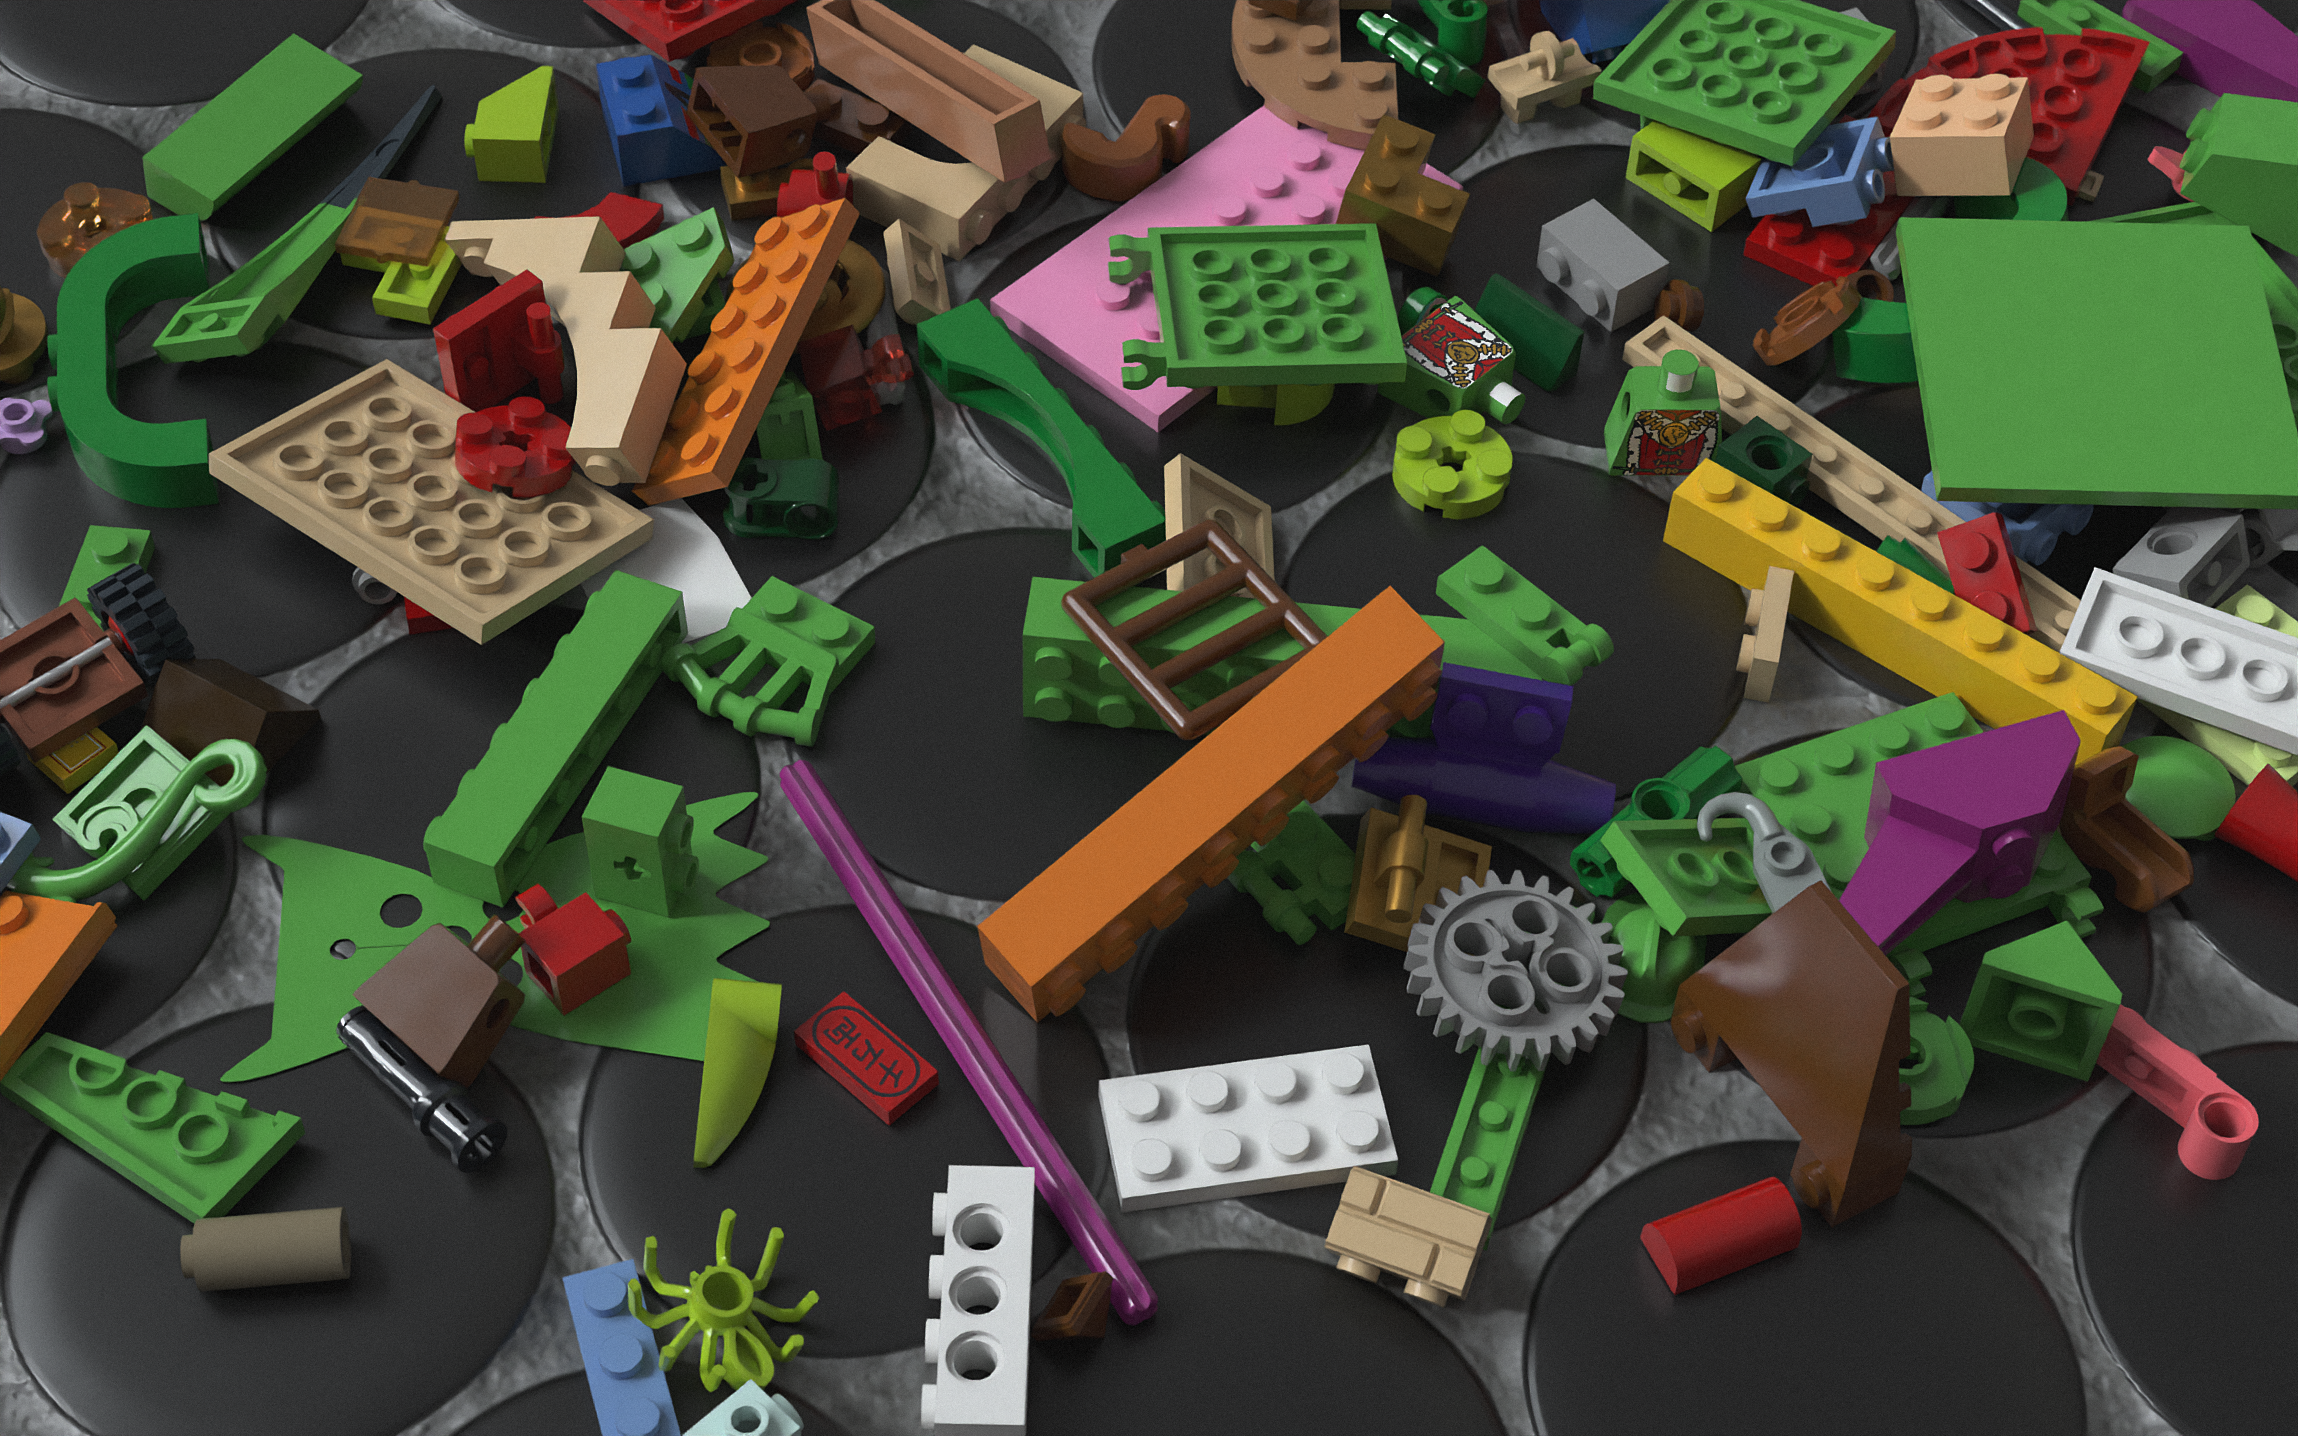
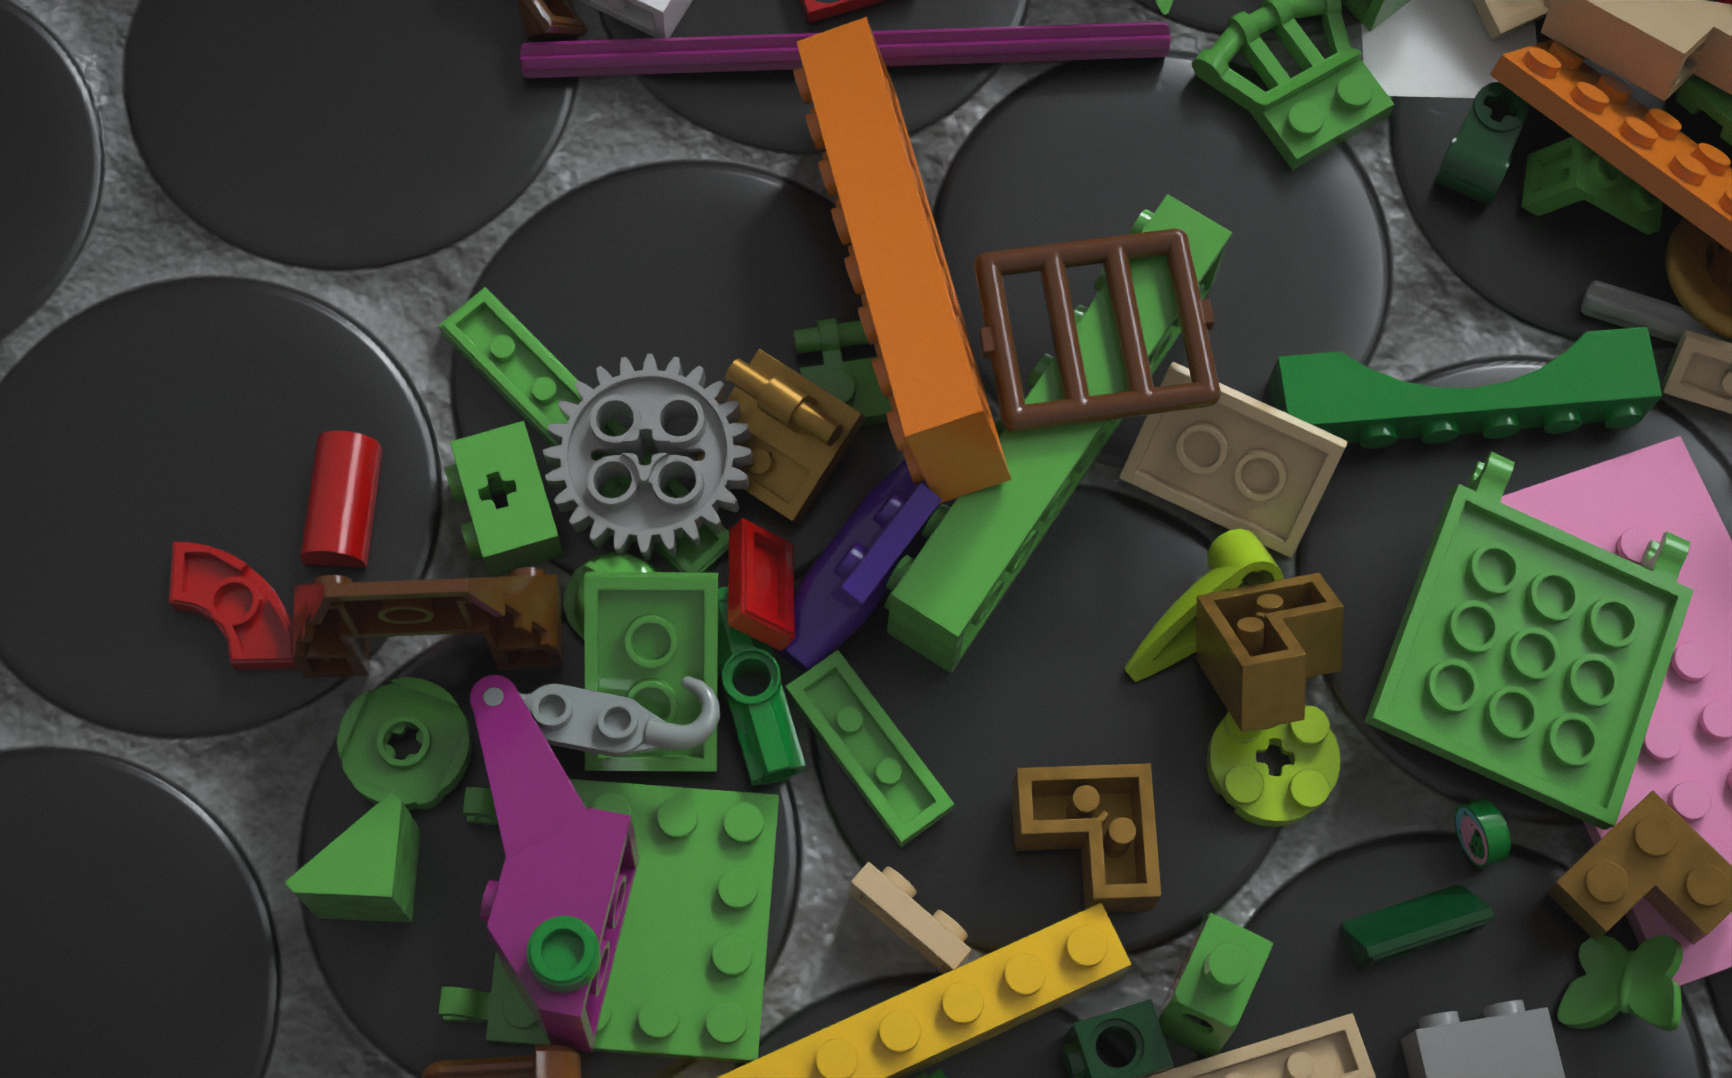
camera: 115 degrees right, 20 degrees up
(844, 373) = (1615, 248): clear red brick -> none
(1245, 1127) = (640, 212): white plate -> none
(1349, 543) = (1234, 562): none -> lime piece
(1389, 475) = (1266, 643): none -> pearl gold brick
(1407, 1235) = (464, 254): tan brick -> none
(1456, 366) = (1394, 822): torso -> none
(1486, 212) = (1625, 982): none -> bright green animal
(1523, 618) = (968, 610): bright green plate -> none
(1569, 834) = (761, 584): none -> red tile
(1606, 533) = (1106, 816): none -> pearl gold brick
(1626, 1085) = (496, 465): none -> bright green brick
(1648, 717) = (869, 748): none -> bright green plate
(1877, 1277) = (236, 601): none -> red tile
(2028, 737) = (563, 954): none -> green tile
(2184, 1091) = (249, 959): coral plate -> none

